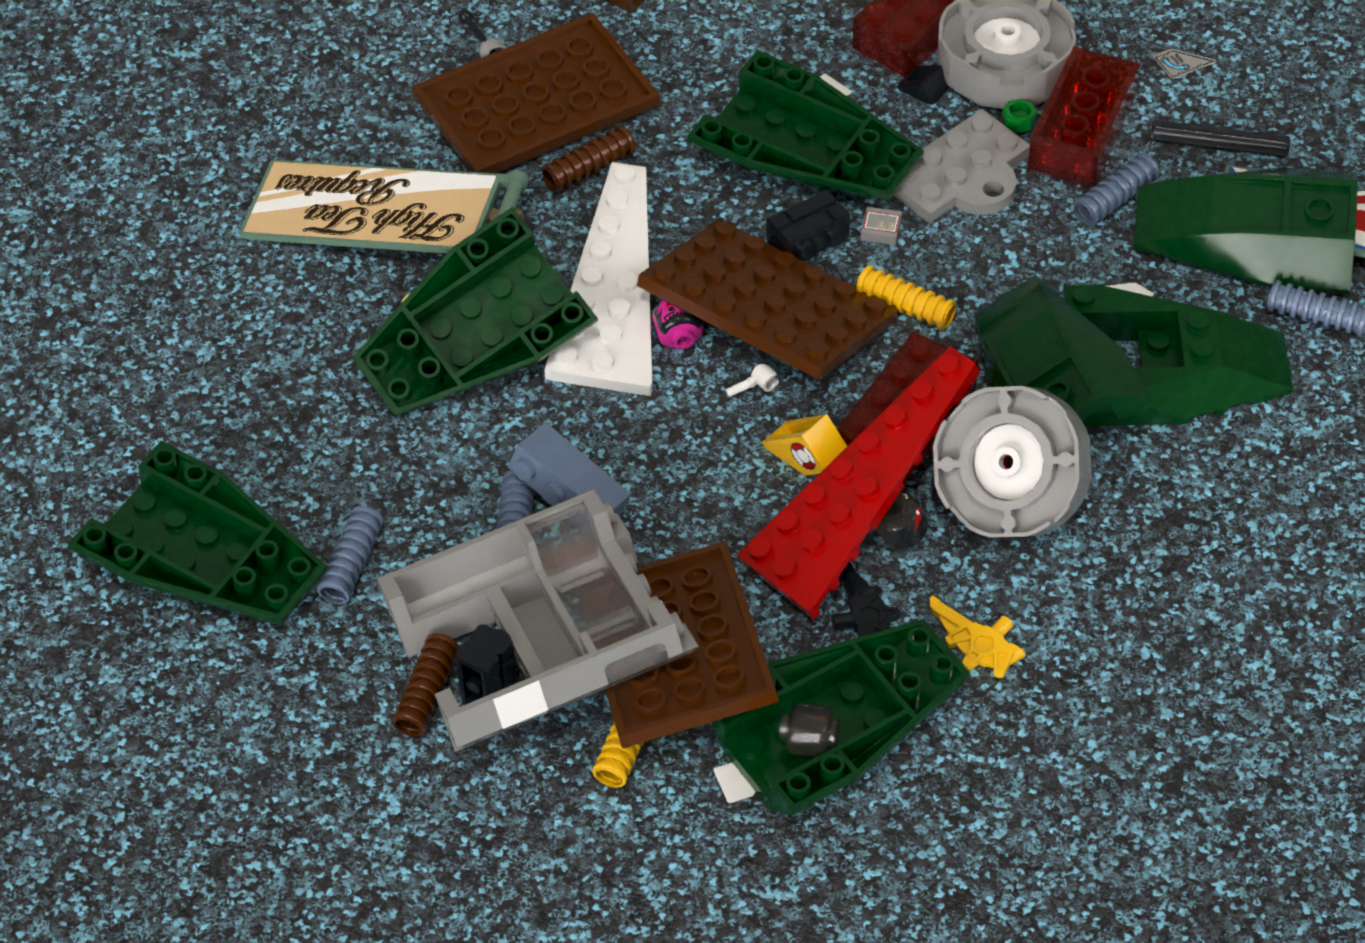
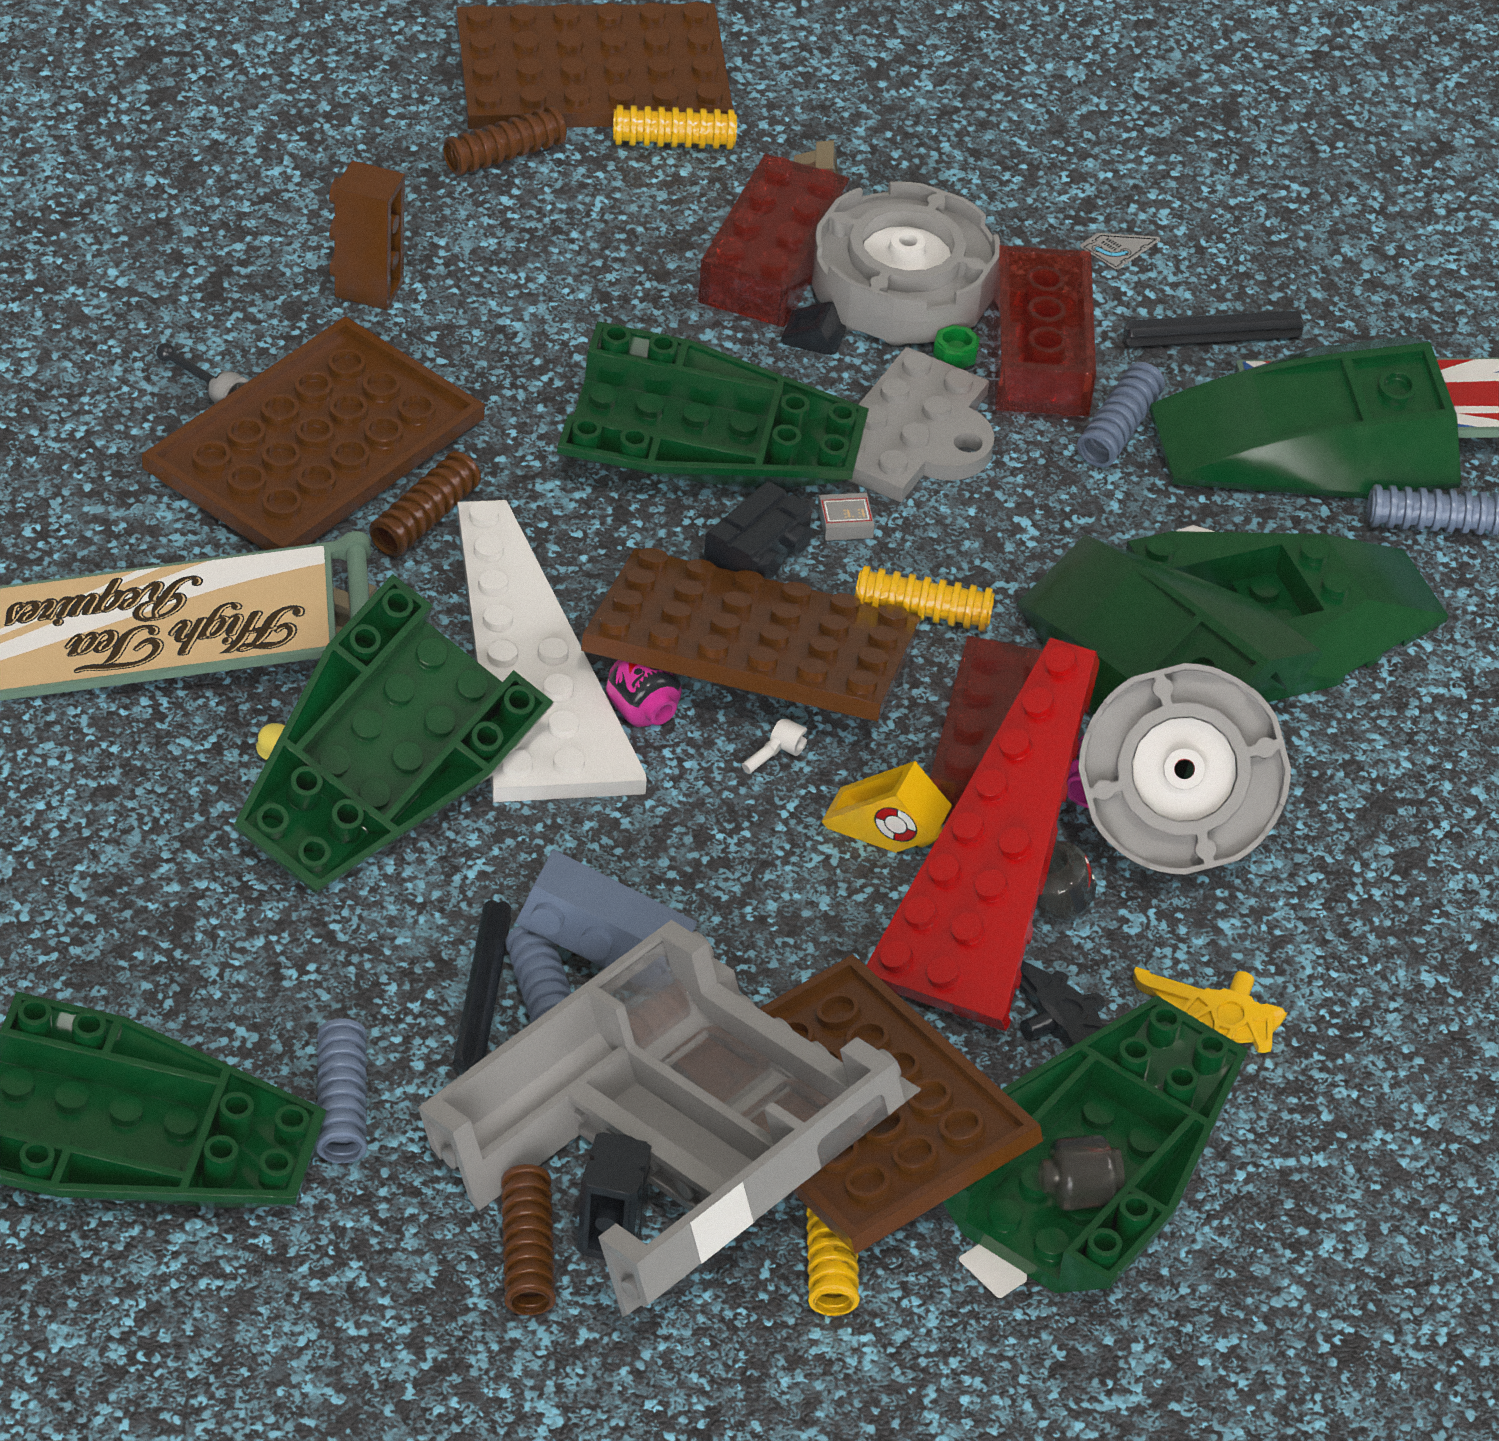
camera: 25 degrees left, 5 degrees down
(477, 503) = (482, 985): none -> black axle

